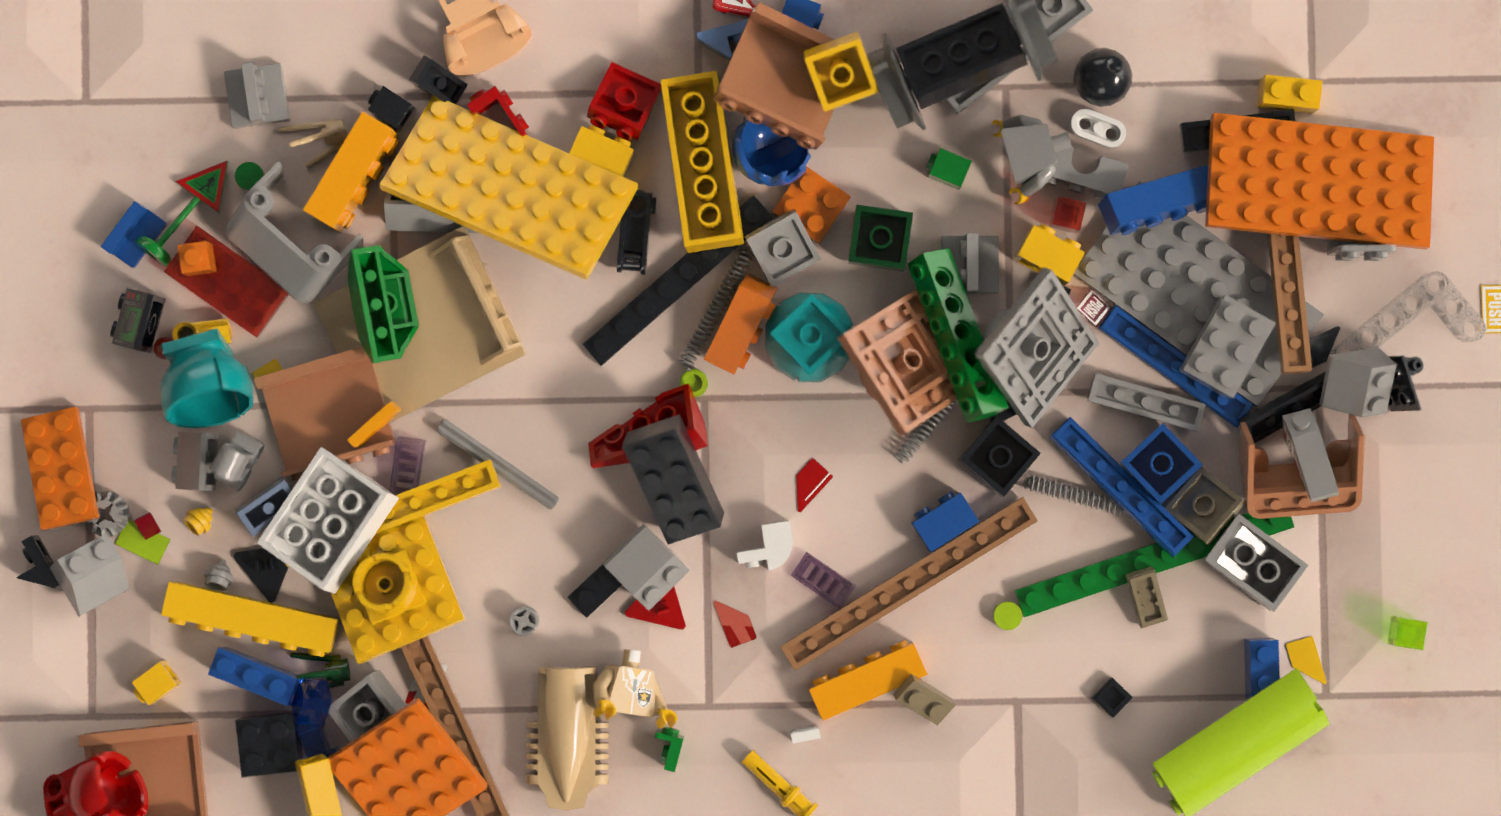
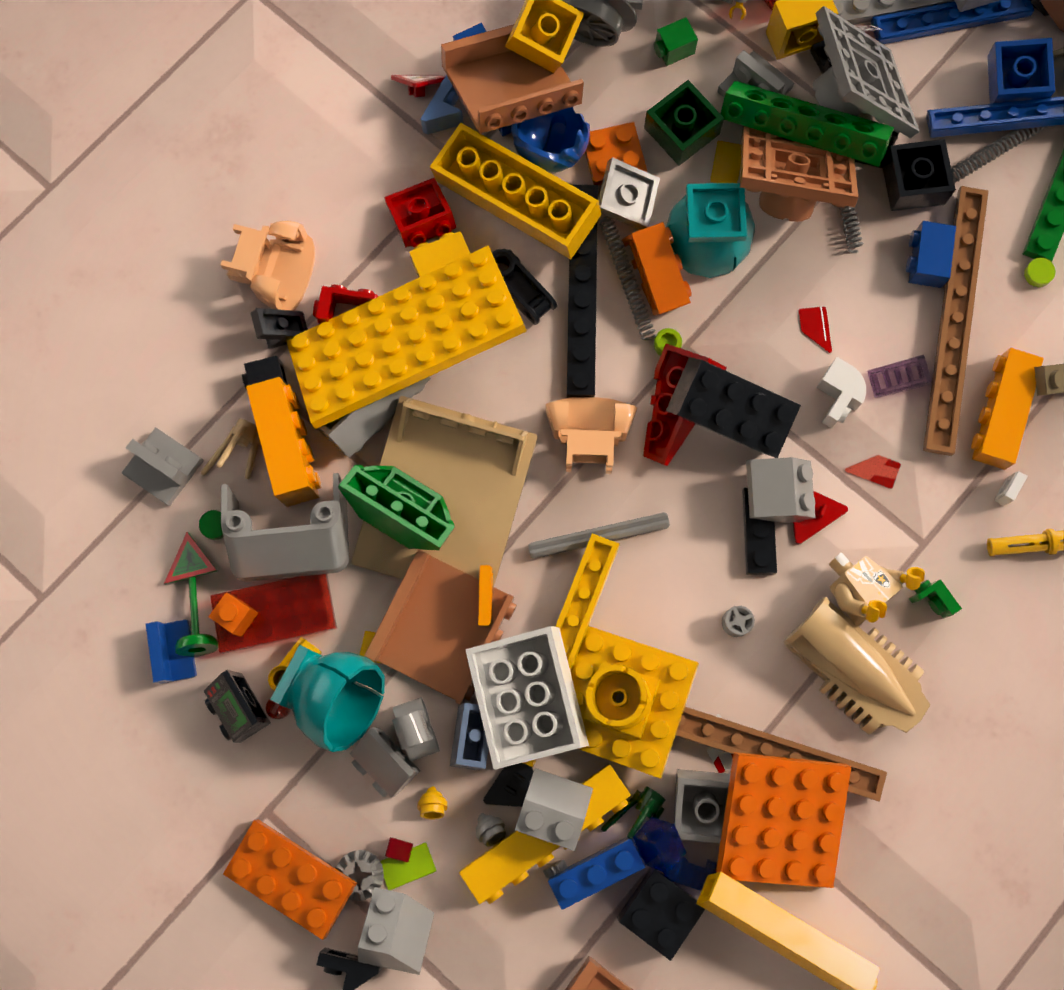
camera: 45 degrees left, 10 degrees down
(155, 683) = (529, 962): yellow brick -> none
(233, 646) = (555, 869): none -> light grey piece
(268, 608) = (554, 809): none -> light grey slope
(413, 444) = (517, 592): slope -> none
(572, 384) = (590, 428): none -> light nougat piece
(883, 295) = (726, 163): none -> yellow sticker
(1146, 402) = (961, 53): light grey plate -> none

